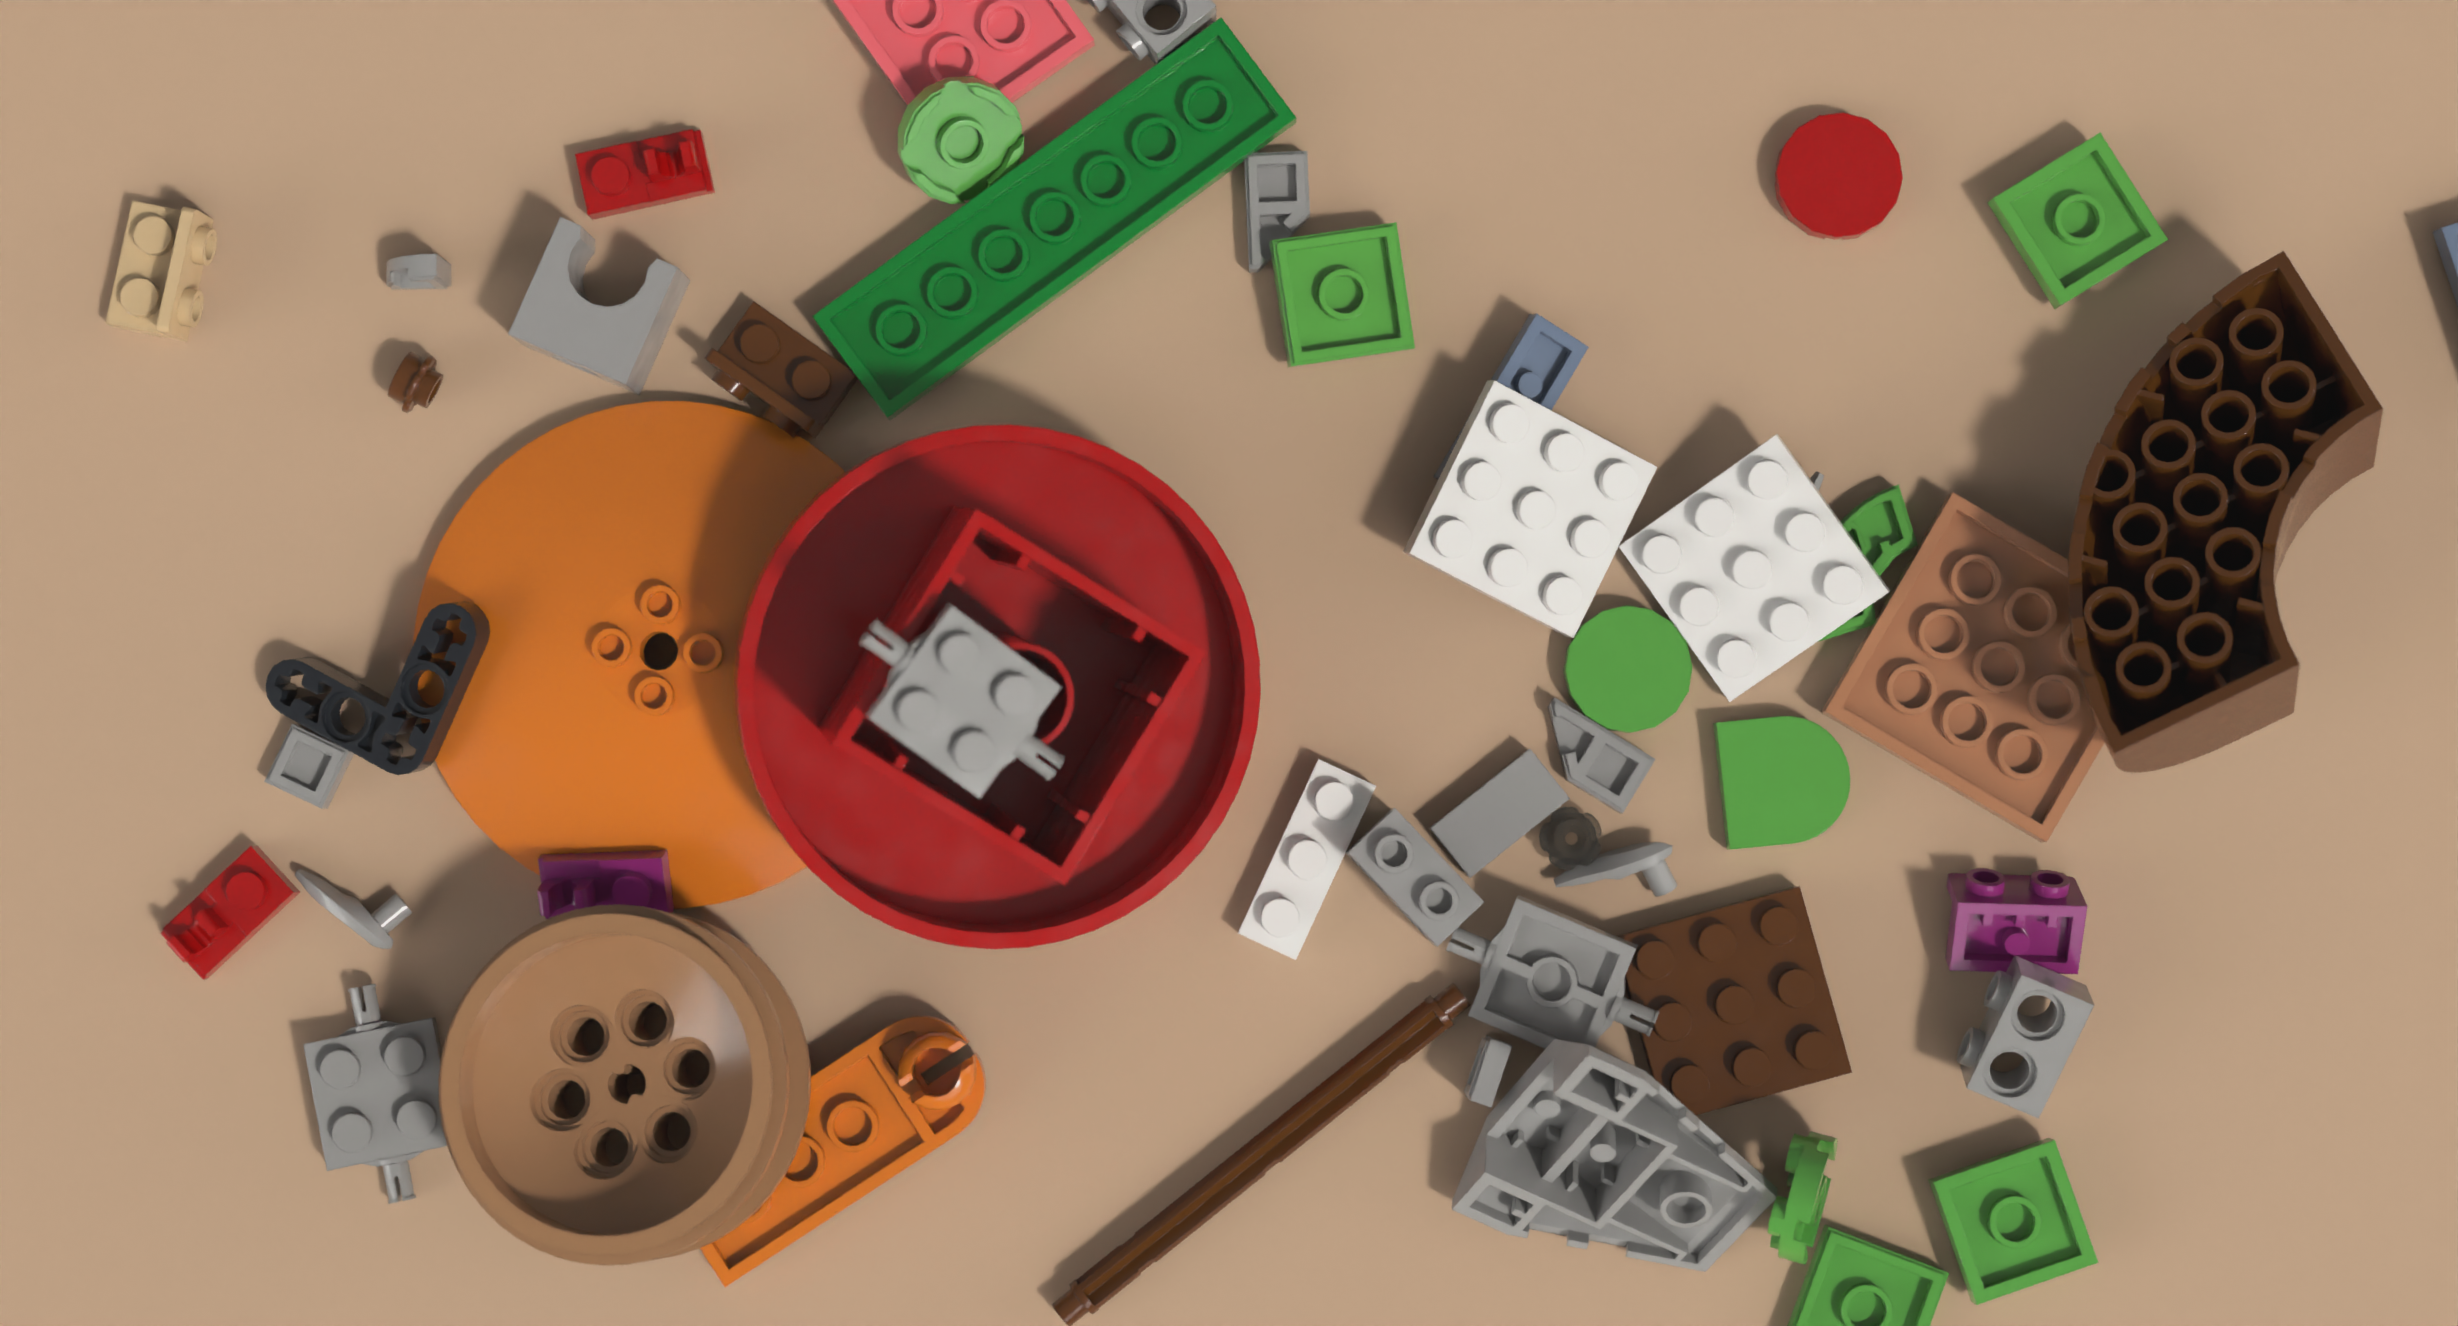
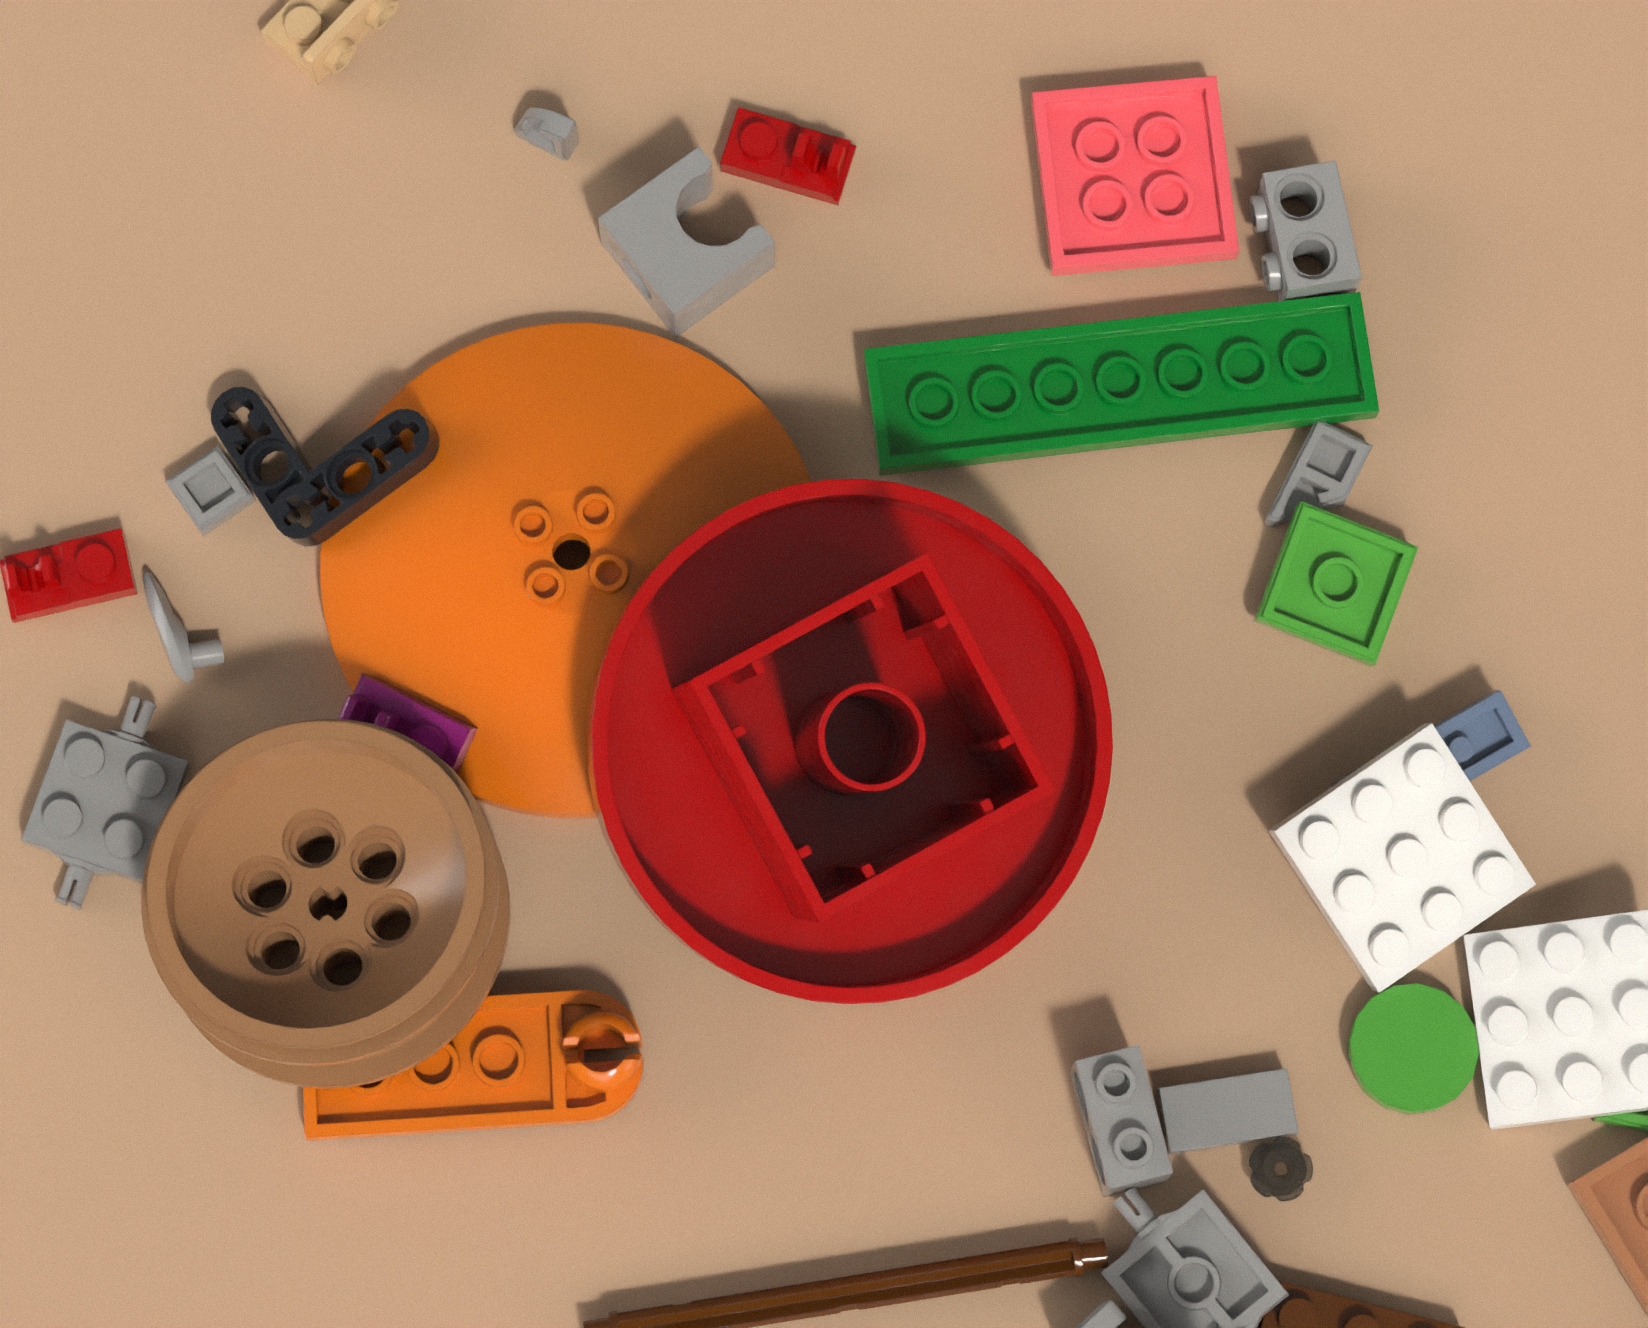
camera: 25 degrees right, 10 degrees down
(415, 382) = (492, 220): reddish brown plate -> none
(782, 371) = (810, 382): reddish brown bracket -> none
(959, 138) = (1076, 269): bright green tile -> none
(962, 700) = (823, 707): light grey plate -> none
(1306, 859) = (1032, 1056): white plate -> none
(1597, 758) = (1342, 1112): light grey tile -> none
(1624, 861) = (1316, 1217): light grey bar -> none
(1778, 780) = (1496, 1223): bright green tile -> none

